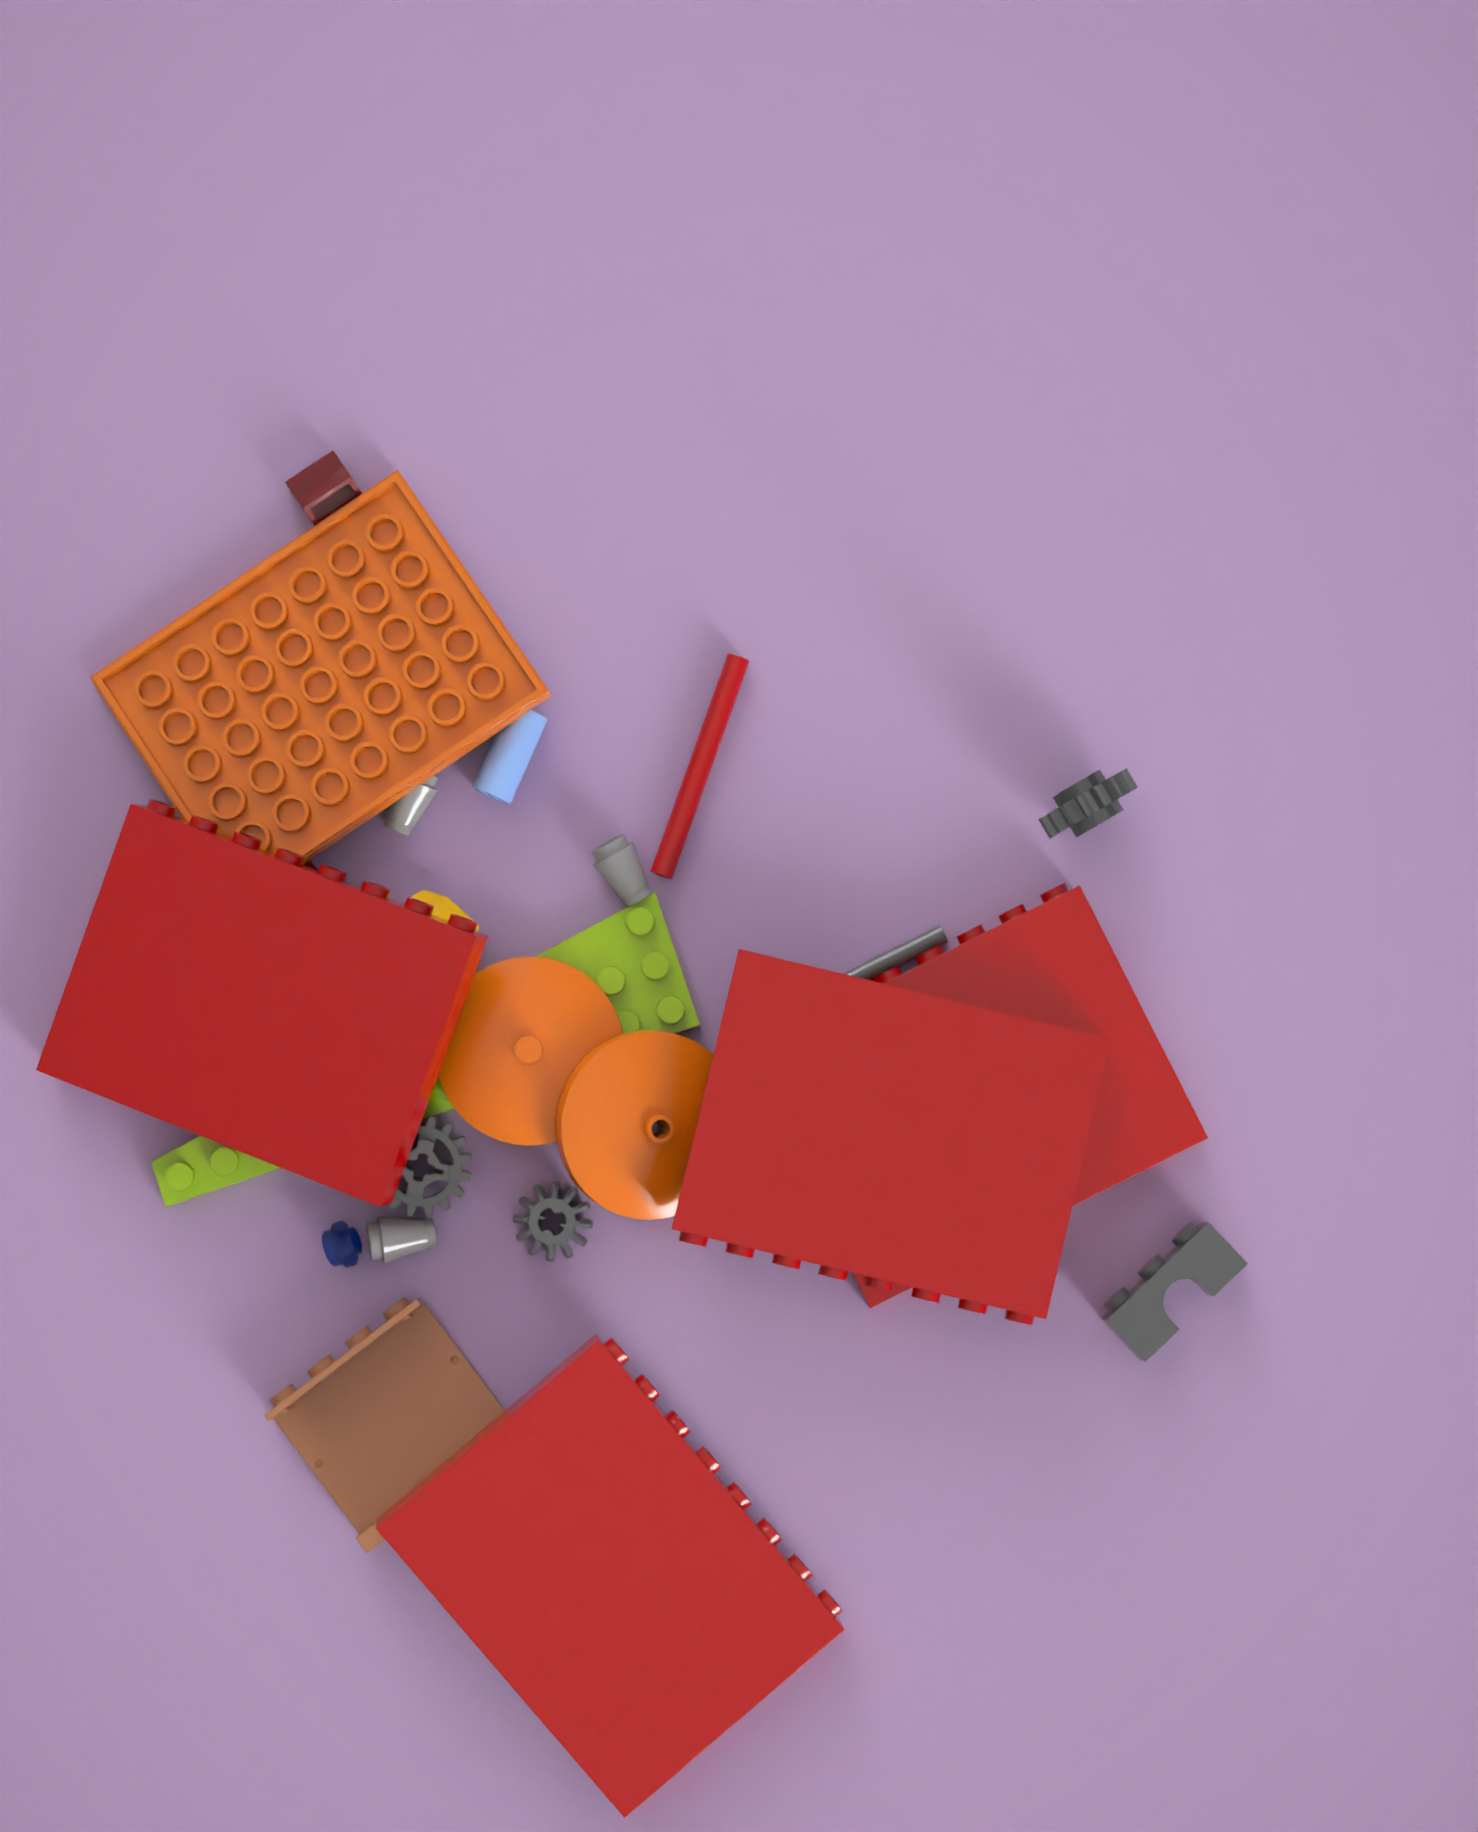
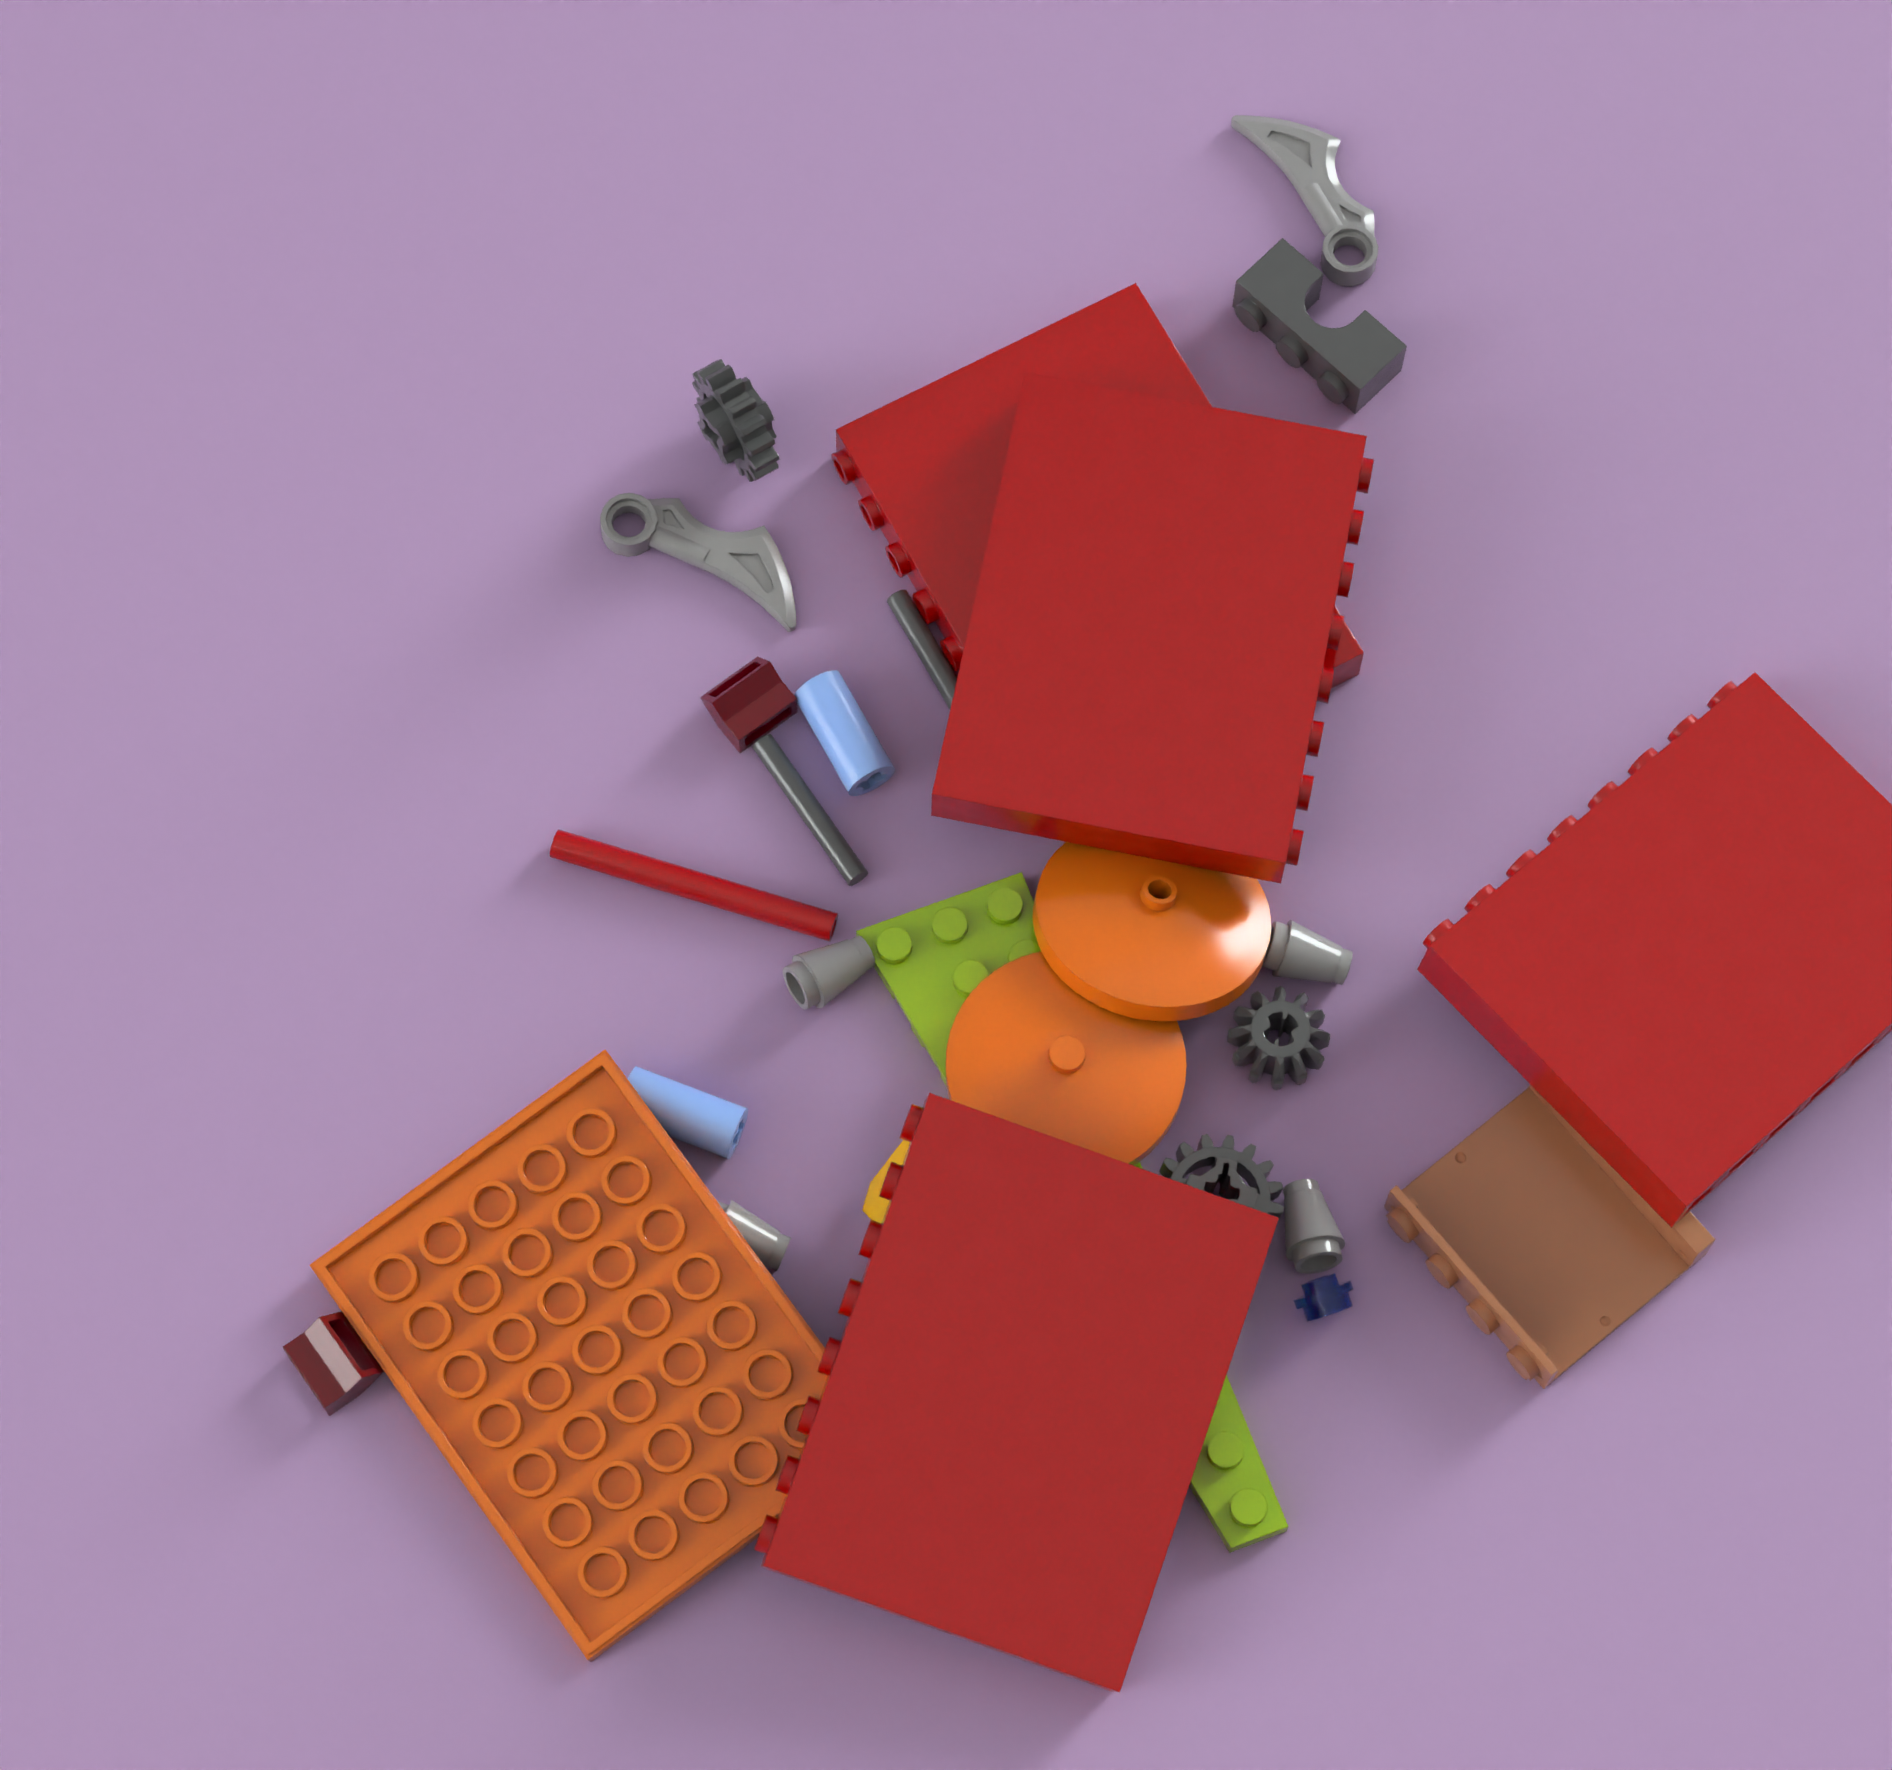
camera: 90 degrees left, 15 degrees down
(622, 1247) = (1305, 955): none -> light grey cone
(761, 859) = (810, 810): none -> dark grey bar
(822, 887) = (844, 733): none -> light blue piece
(852, 812) = (750, 703): none -> dark red piece
(980, 808) = (741, 558): none -> light grey piece
(1334, 1292) = (1309, 164): none -> light grey piece

